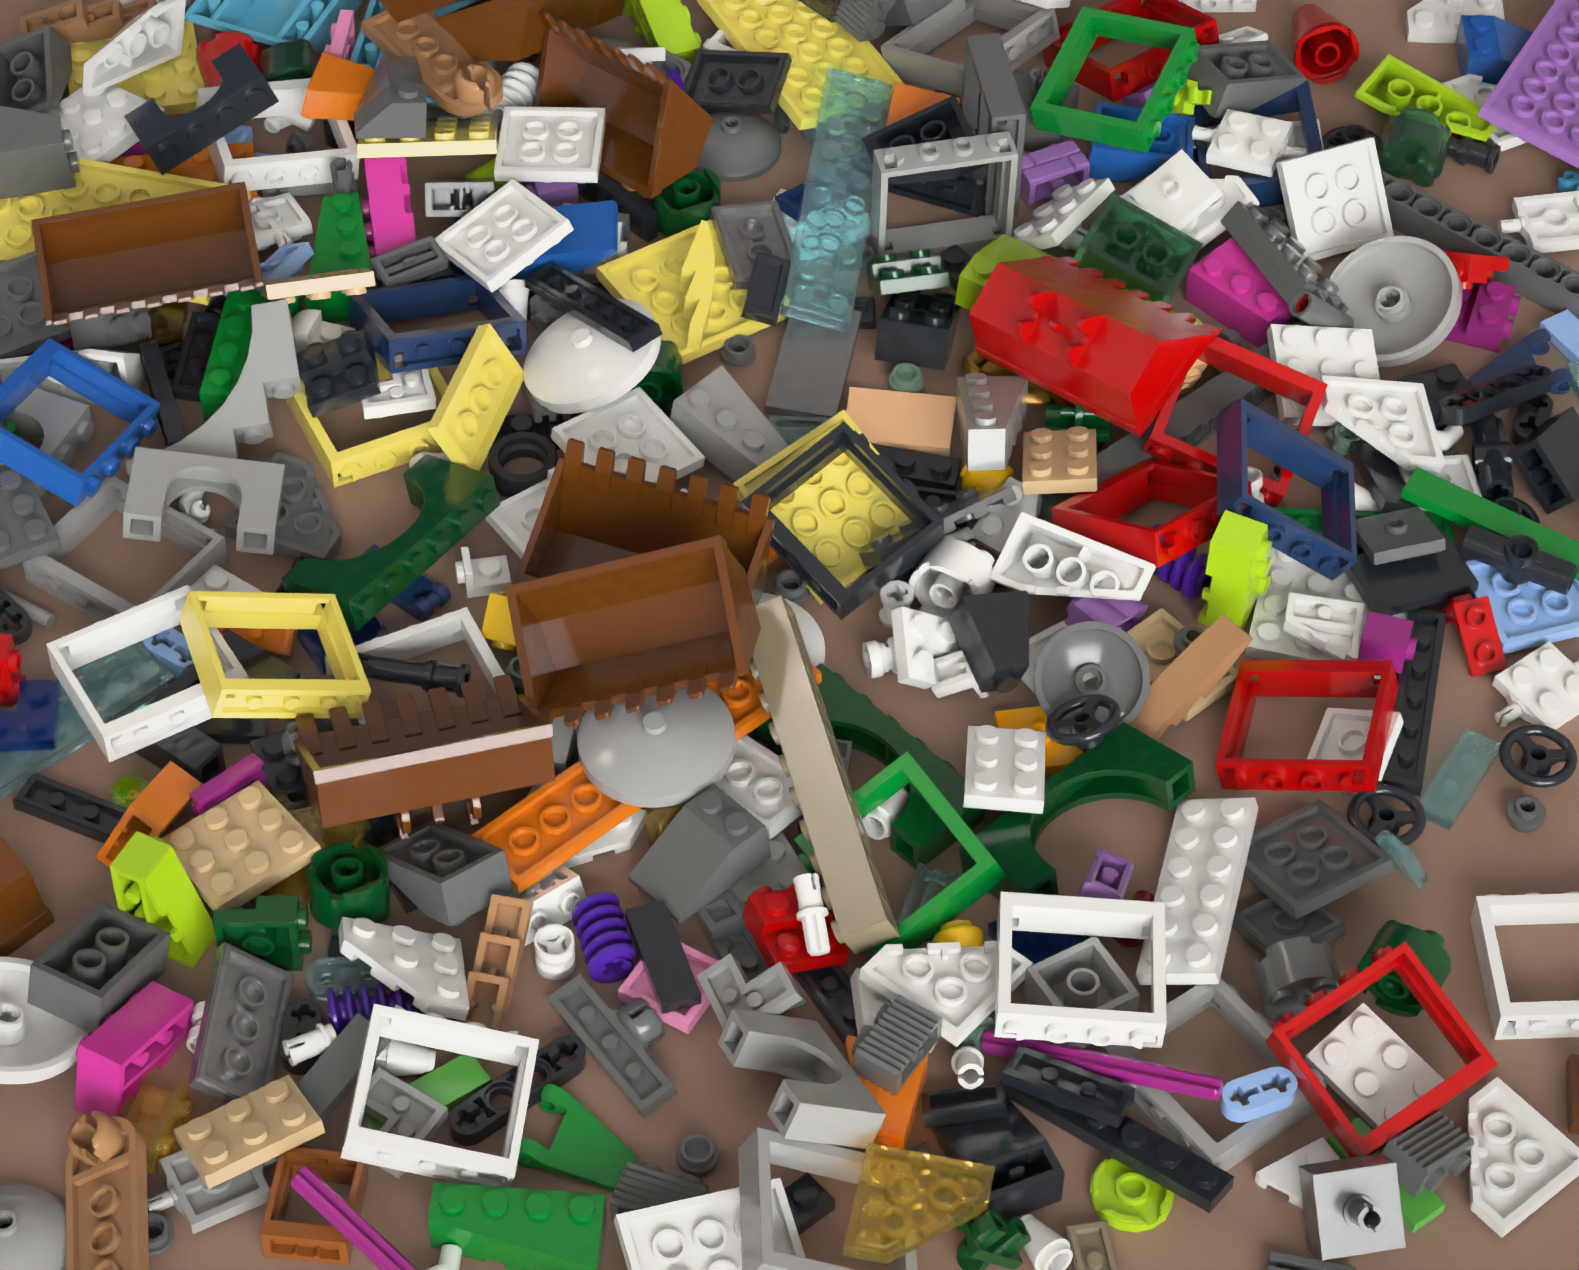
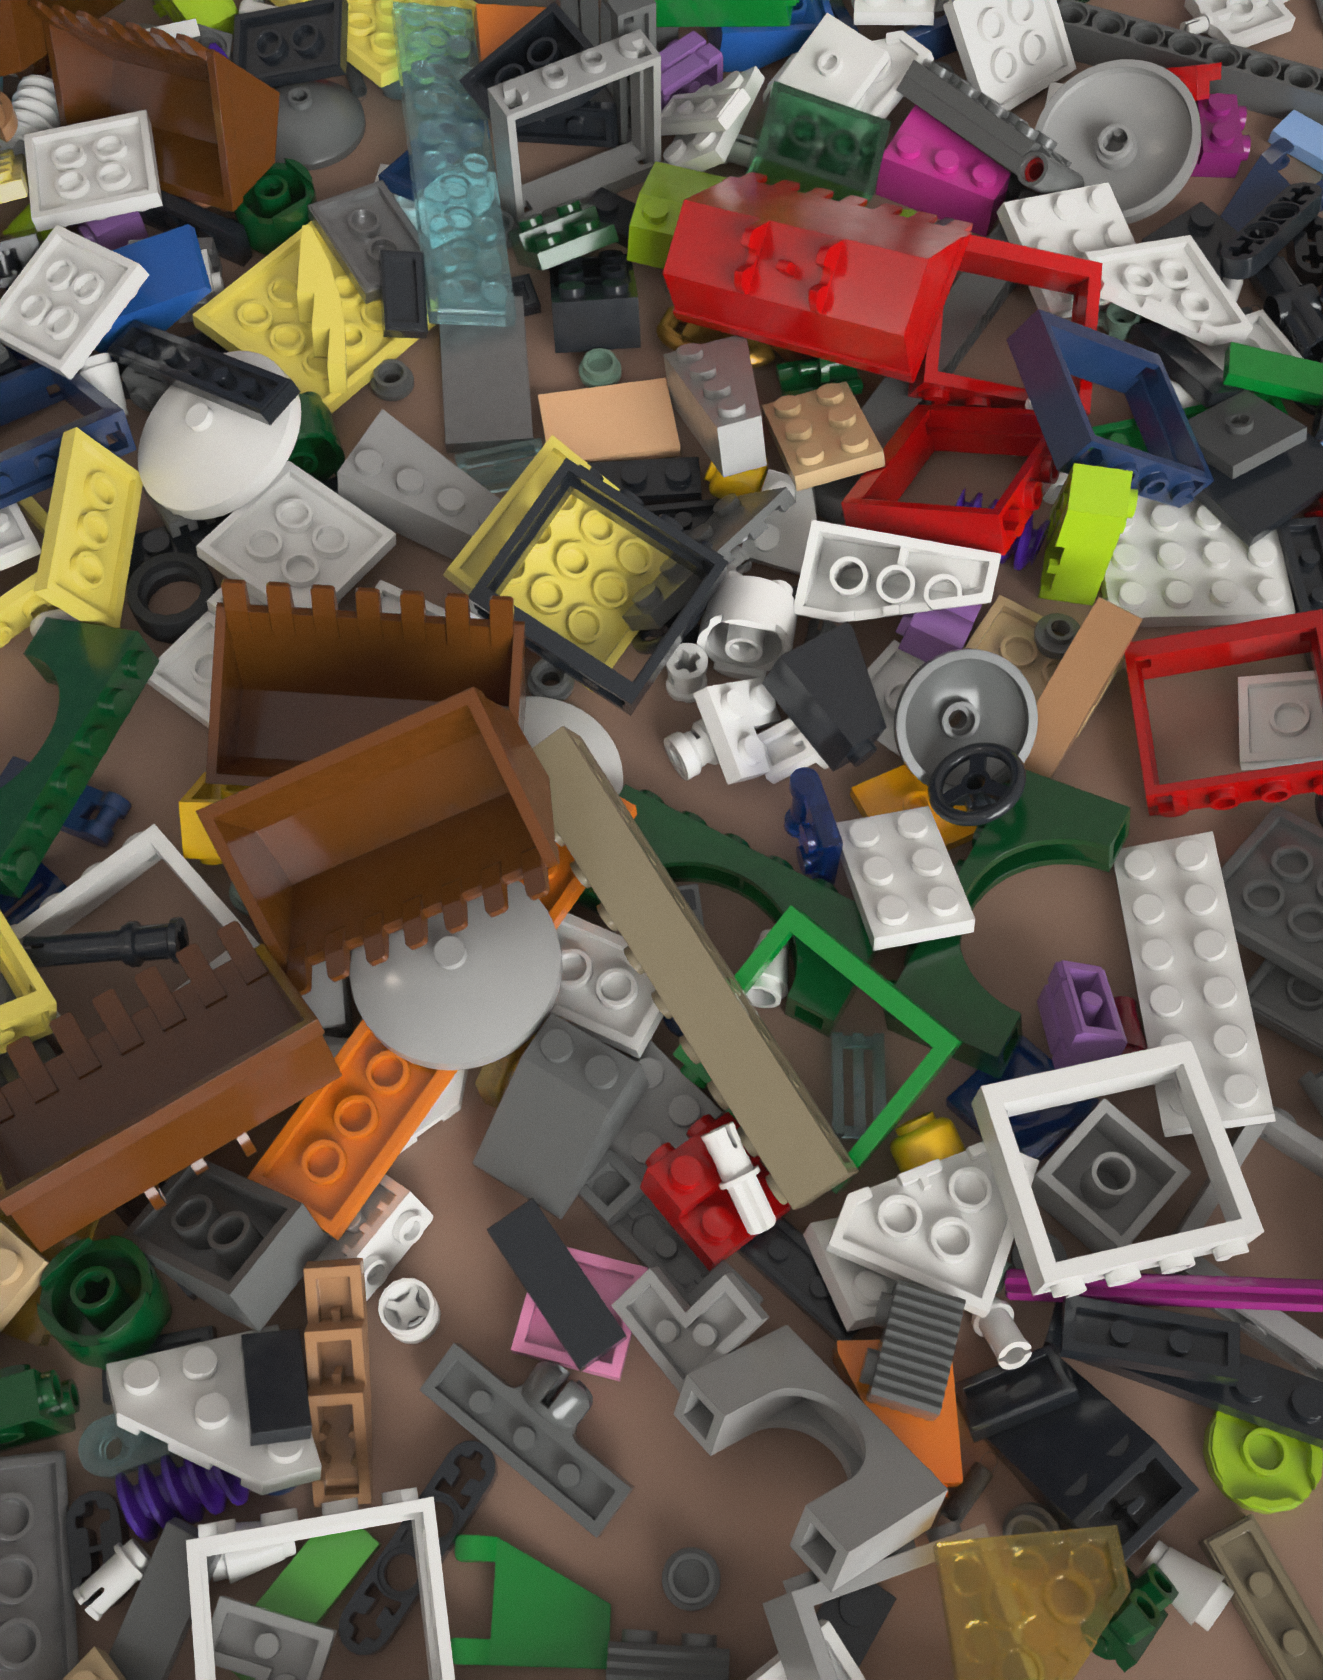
camera: 15 degrees left, 15 degrees up
(452, 956) = (275, 1387): none -> black tile
(482, 574) = (163, 762): white bracket -> none
(604, 937) = (465, 1271): dark purple piece -> none
(950, 720) = (814, 826): none -> clear blue plate
(1050, 203) = (702, 111): none -> white tile
(1325, 624) = (1204, 571): white wing -> none
(1387, 639) = (1281, 576): magenta brick -> none

